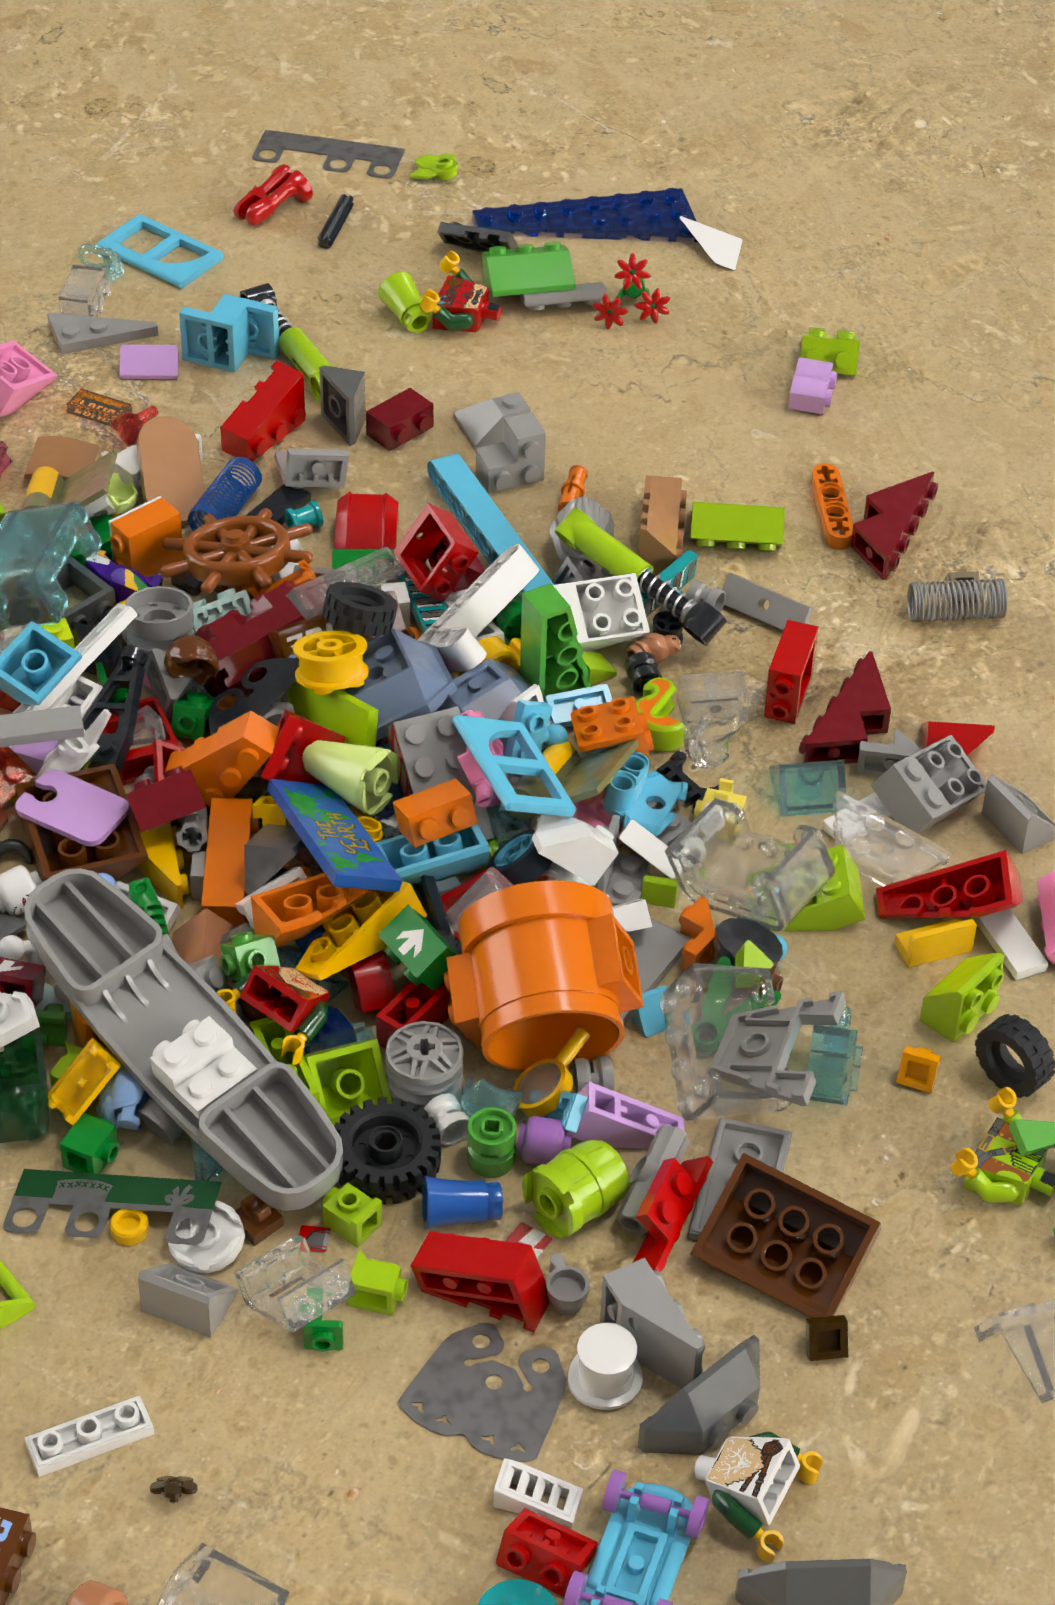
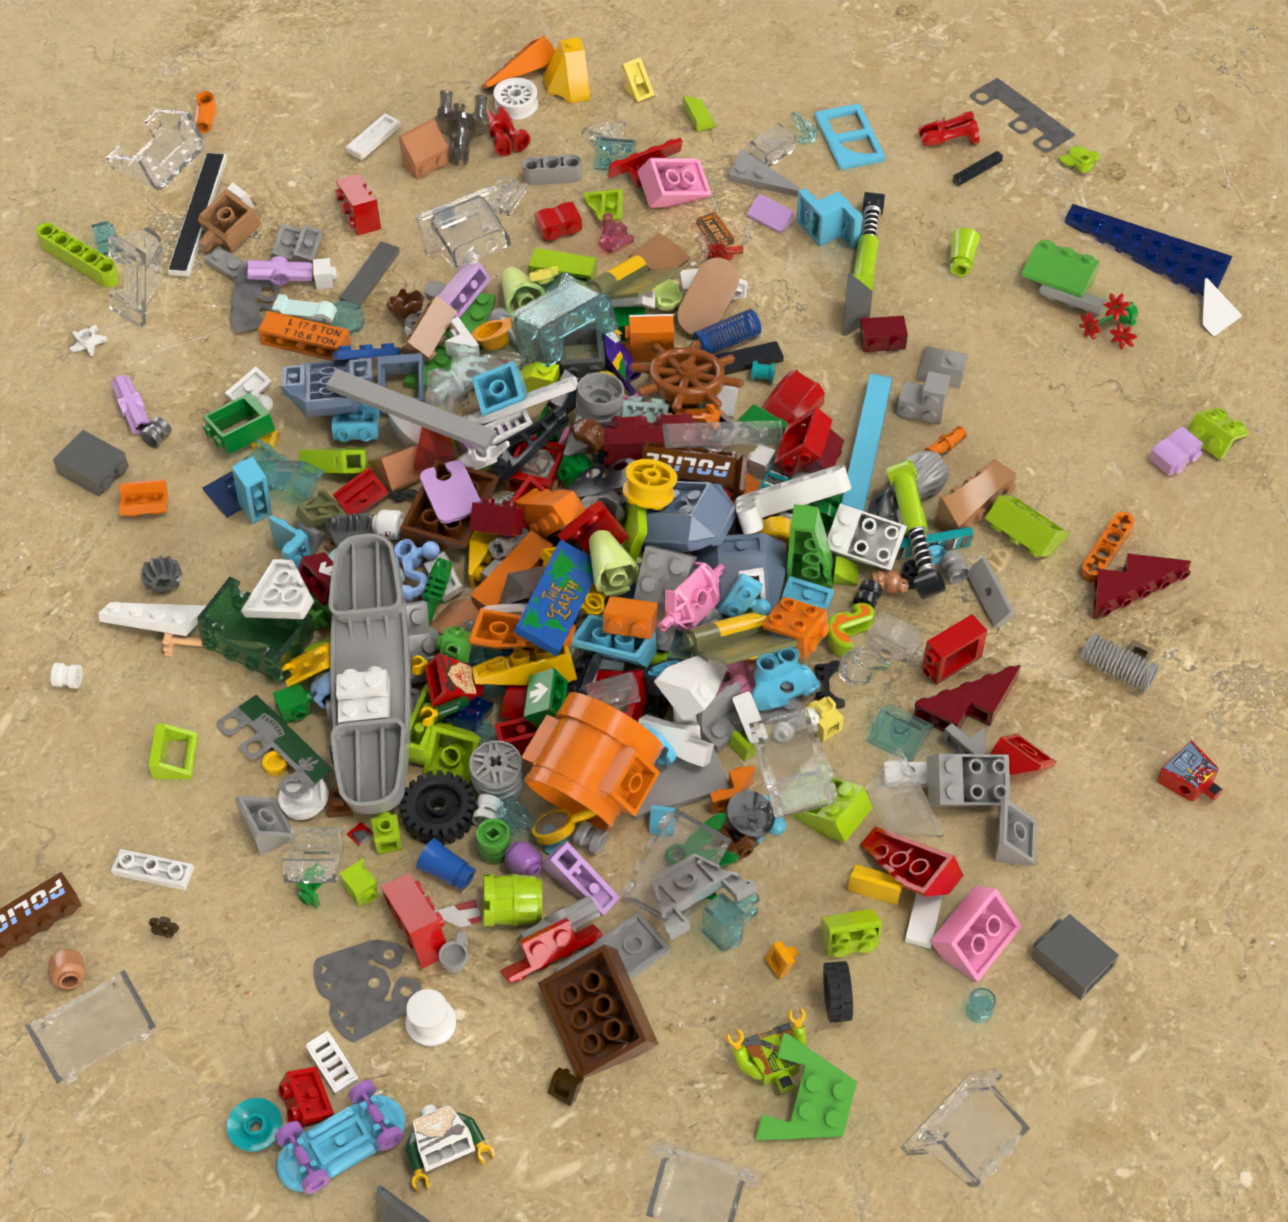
camera: 40 degrees right, 10 degrees up
(267, 416) = (801, 289): red wedge -> none
(313, 467) = (795, 339): light grey bracket -> none
(359, 608) = (686, 468): black tyre -> none
(461, 301) = (997, 270): torso -> none
(475, 238) = (1053, 228): black wing -> none
(479, 732) = (689, 581): medium azure window -> none
(573, 1108) = (552, 848): medium azure tile -> none
(664, 1339) = (471, 998): light grey slope -> none
(707, 1406) = (466, 1079): dark grey wedge -> none
(752, 956) = (728, 828): lime slope -> none

